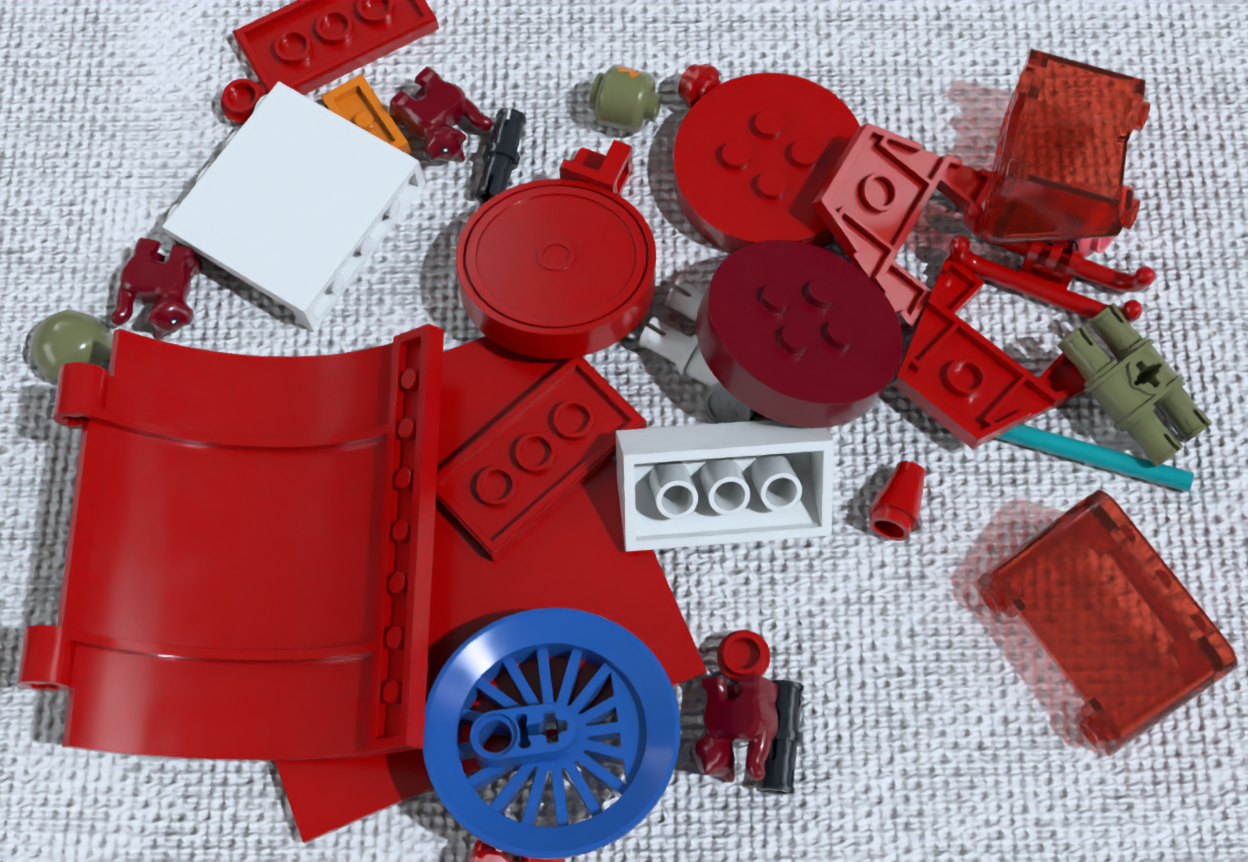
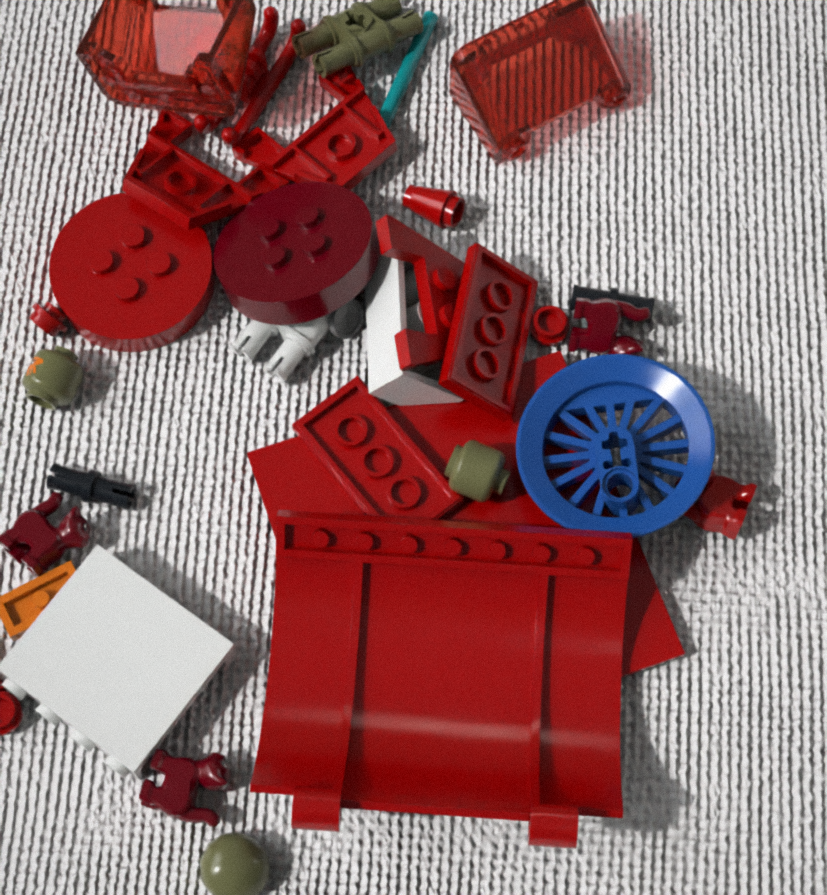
camera: 90 degrees left, 0 degrees up
(521, 566) = (477, 471): none -> olive head
(556, 268) = (213, 437): red brick -> none
(602, 170) = (121, 406): red panel -> none
(711, 570) = (489, 333): none -> red tile
(751, 523) = (438, 284): none -> red wing

